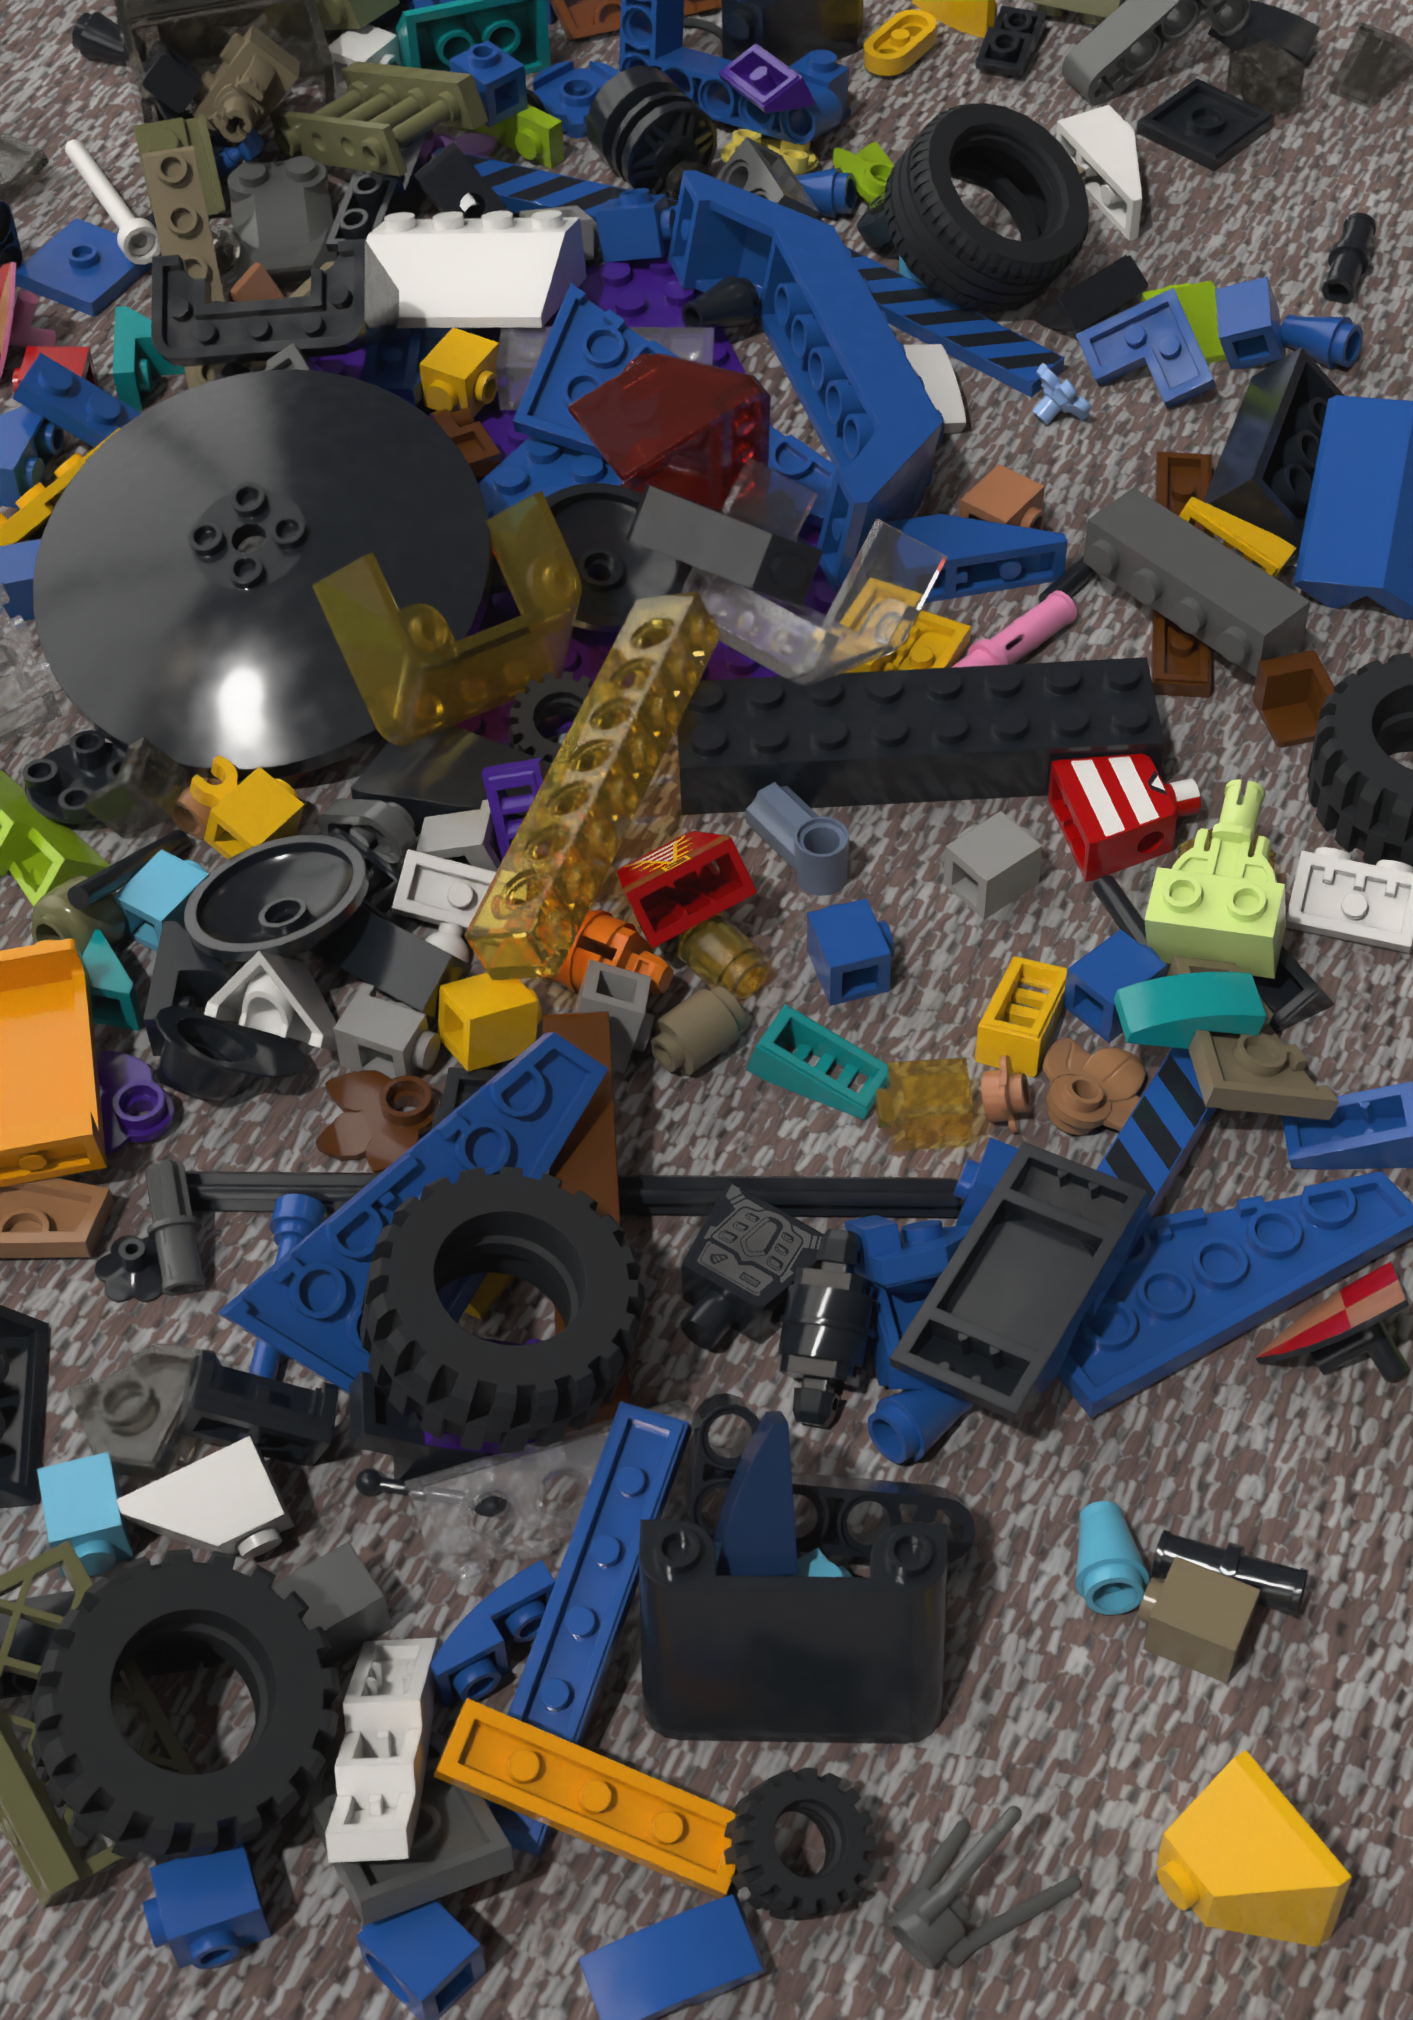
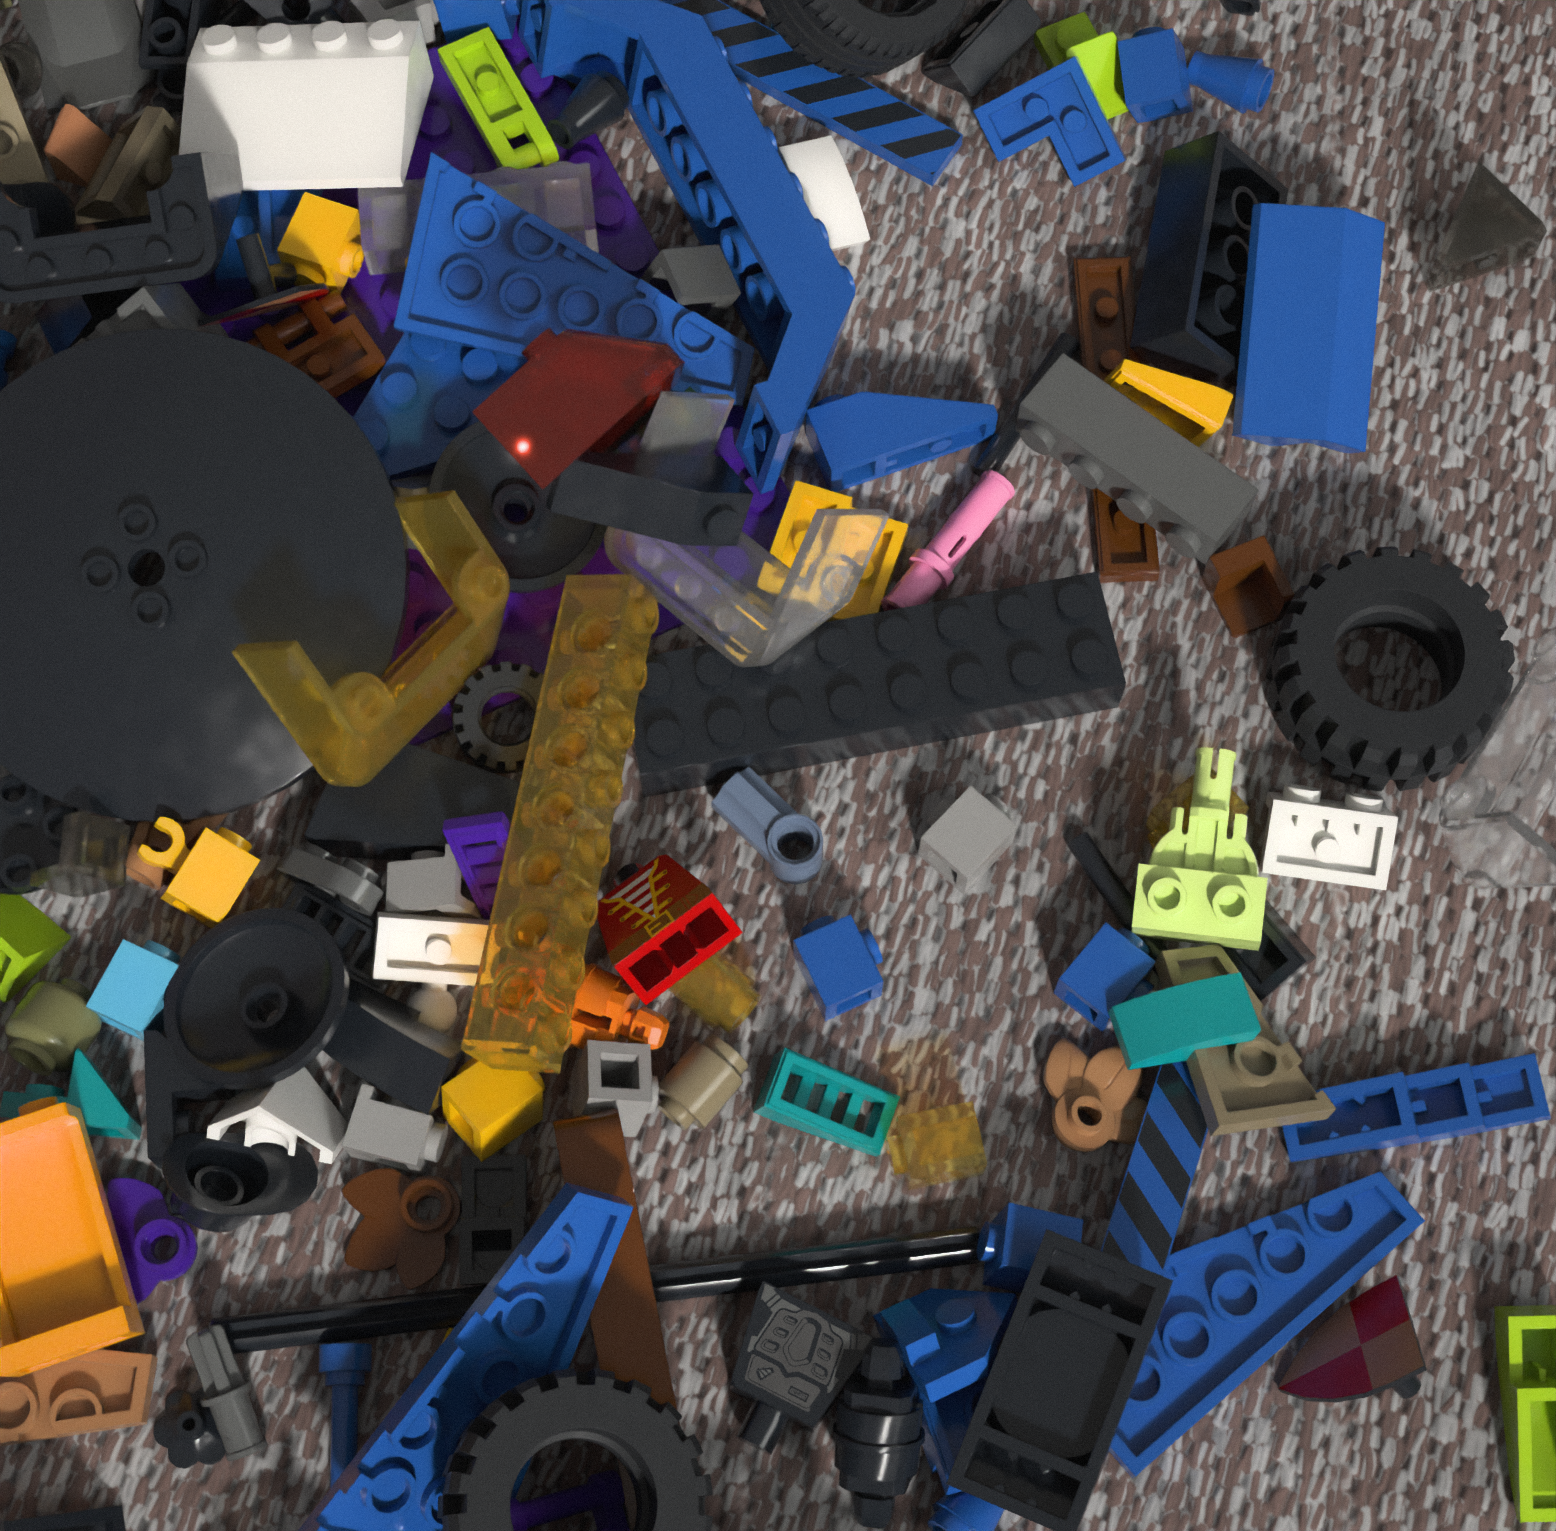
camera: 10 degrees left, 20 degrees up
(118, 874) = (93, 965): black bar -> none
(424, 384) = (264, 280): none -> black shield
(636, 286) = (497, 101): none -> lime plate
(802, 418) = (697, 278): none -> dark grey panel
(1005, 499) = (925, 362): nougat brick -> none
(1005, 1094) = (1012, 1122): nougat plate -> none
(1025, 1043) = (1011, 1051): yellow slope -> none
(1058, 398) = (962, 195): light blue plant -> none
(1117, 810) = (1084, 754): red torso -> none

